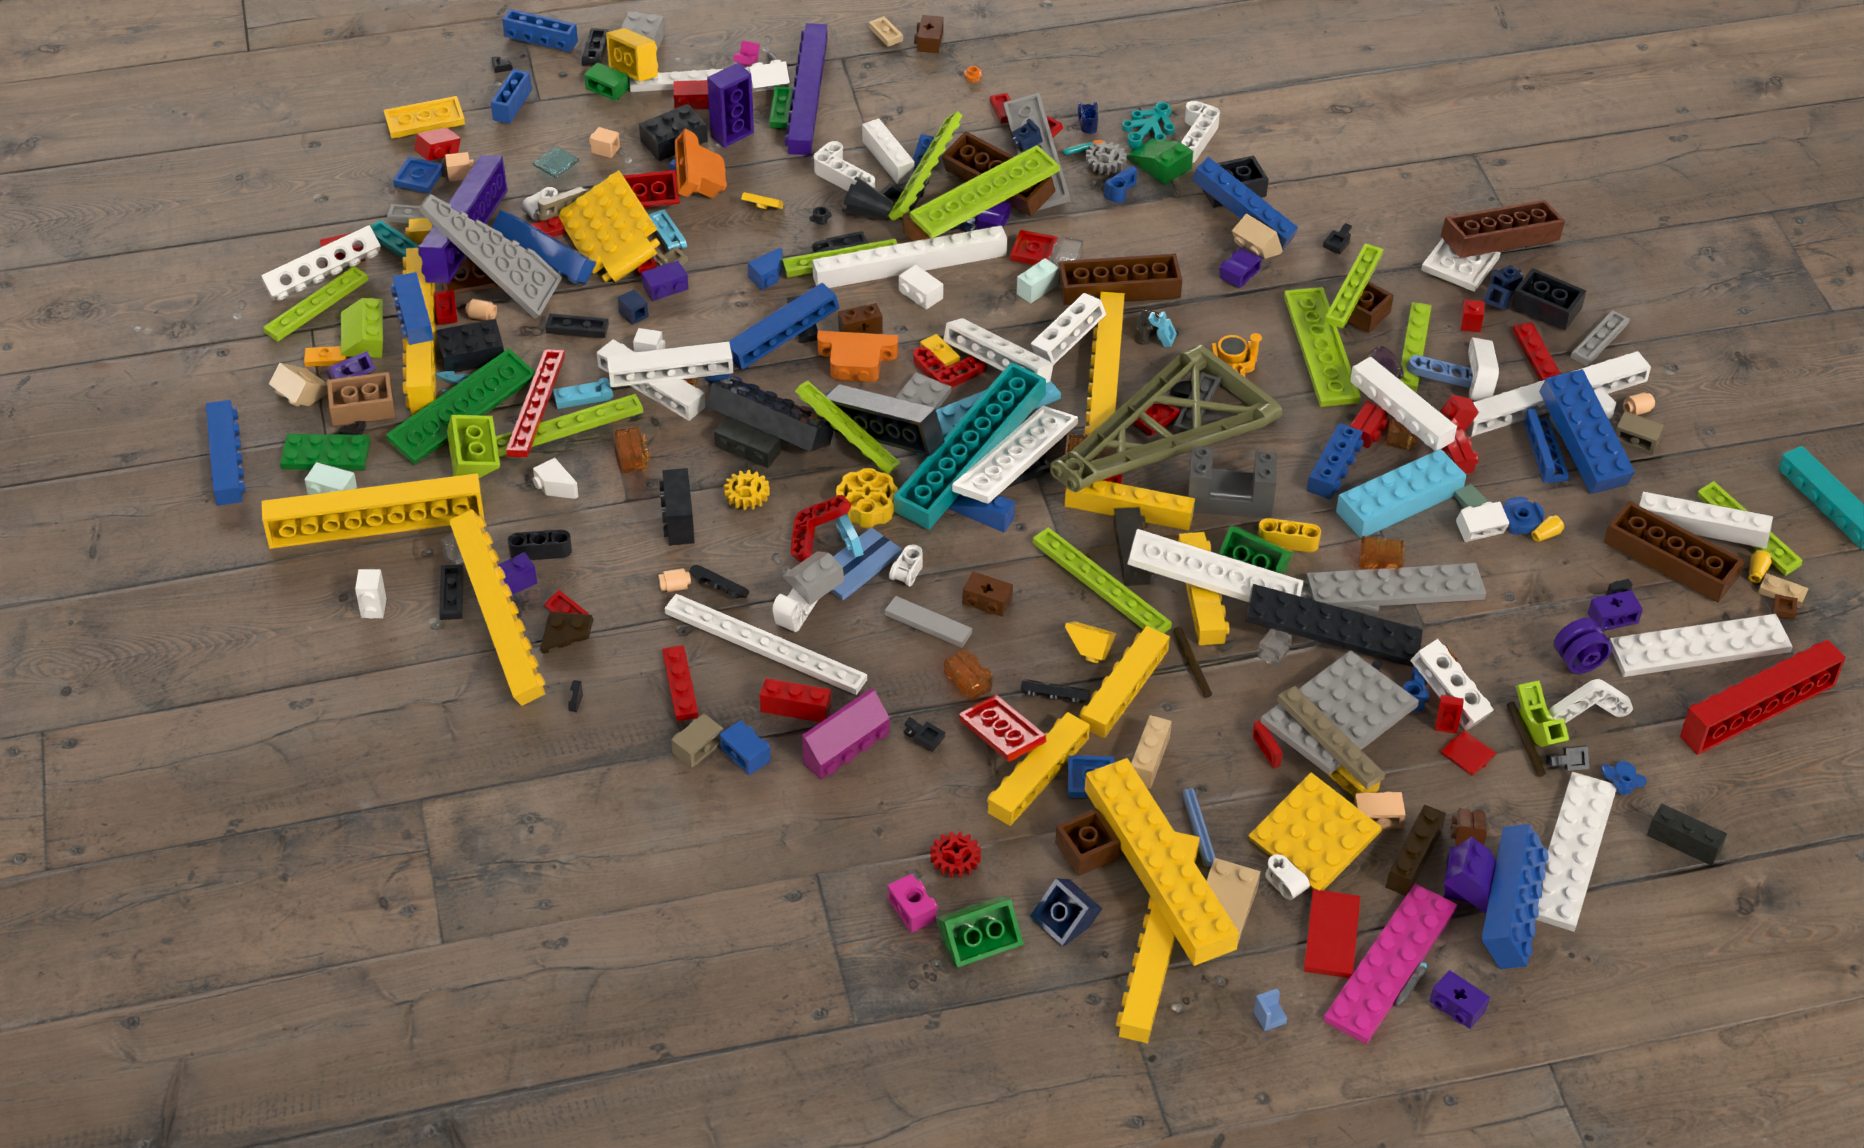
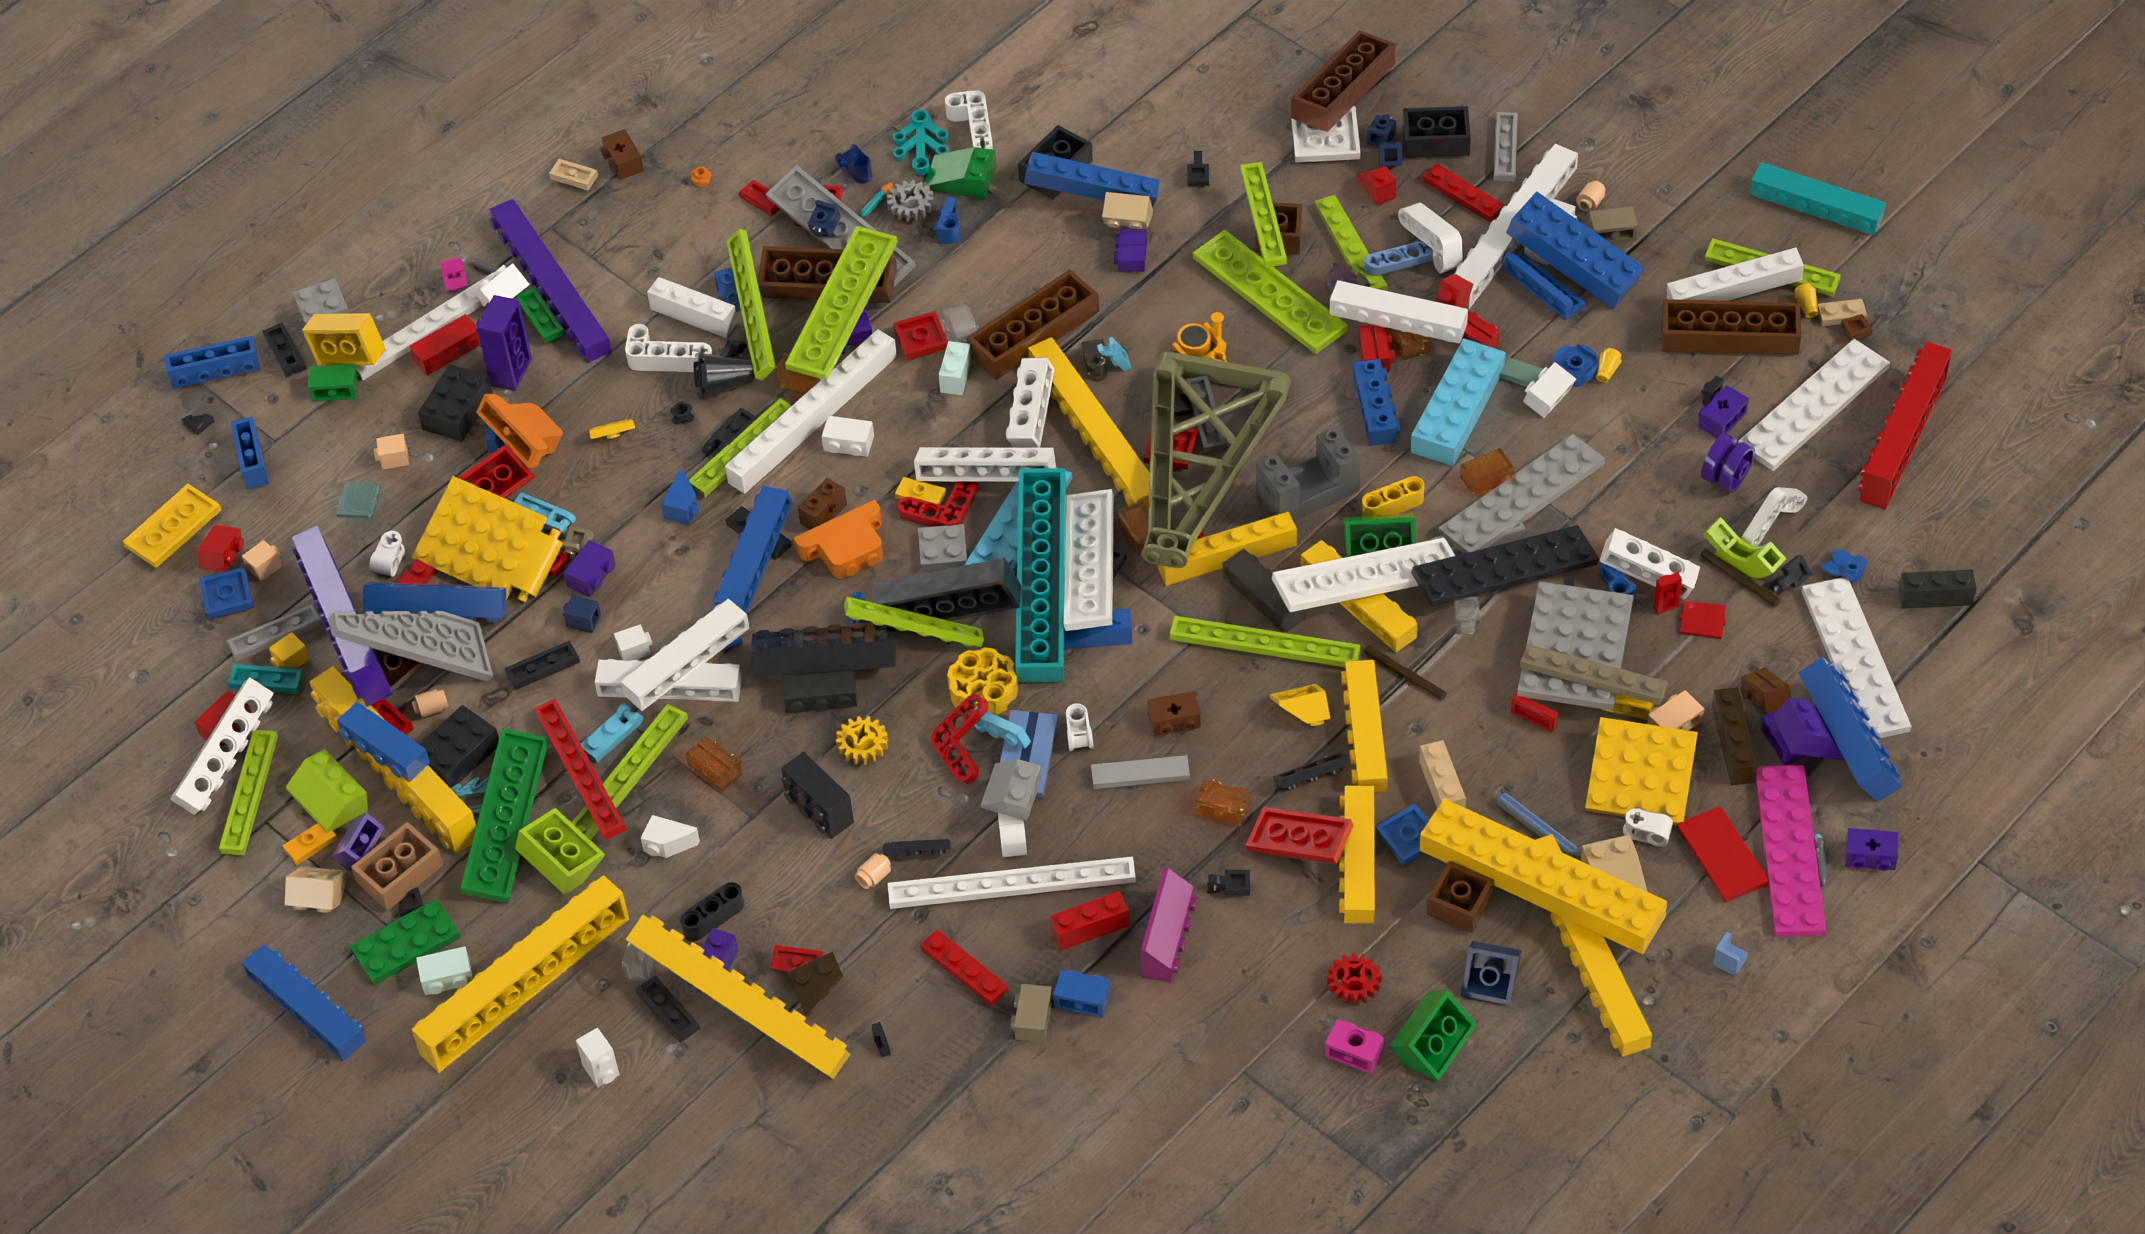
camera: 30 degrees left, 5 degrees up
(557, 202) = (405, 552): dark tan plate -> none

